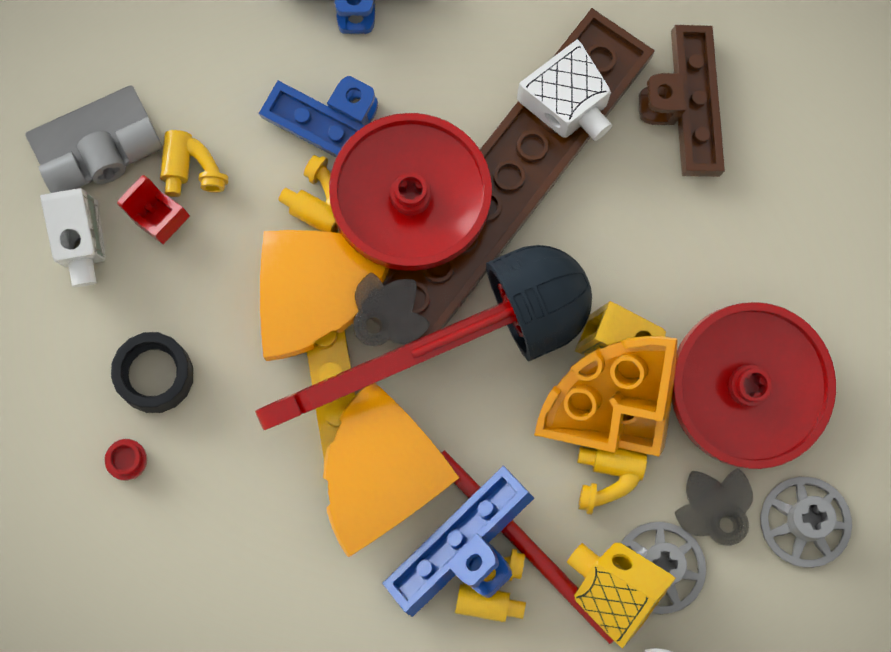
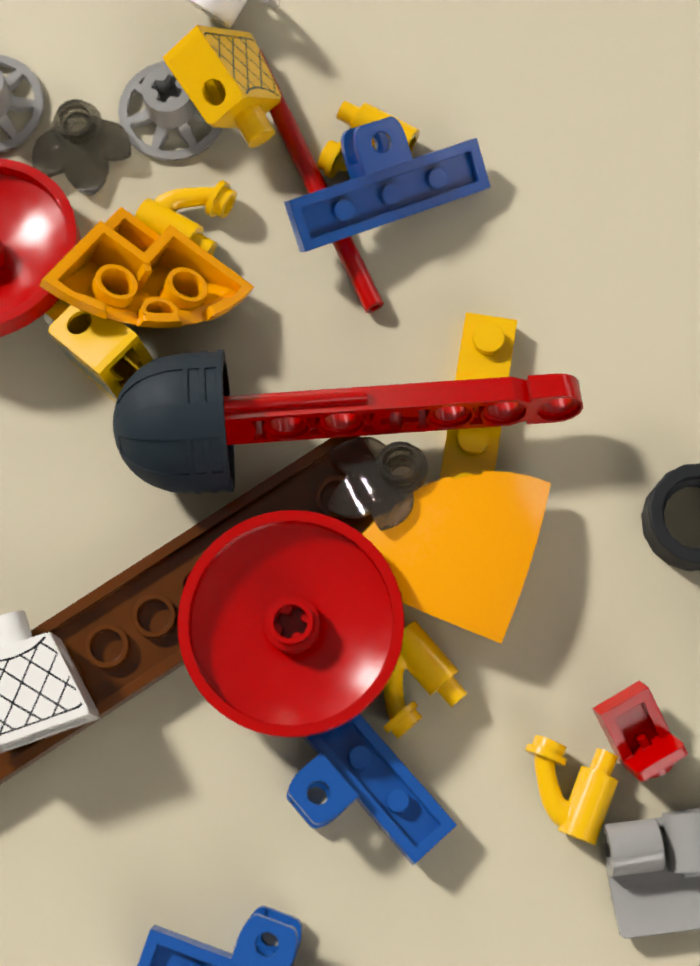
camera: 155 degrees left, 0 degrees up
(379, 469) = (452, 295): light orange brick -> none

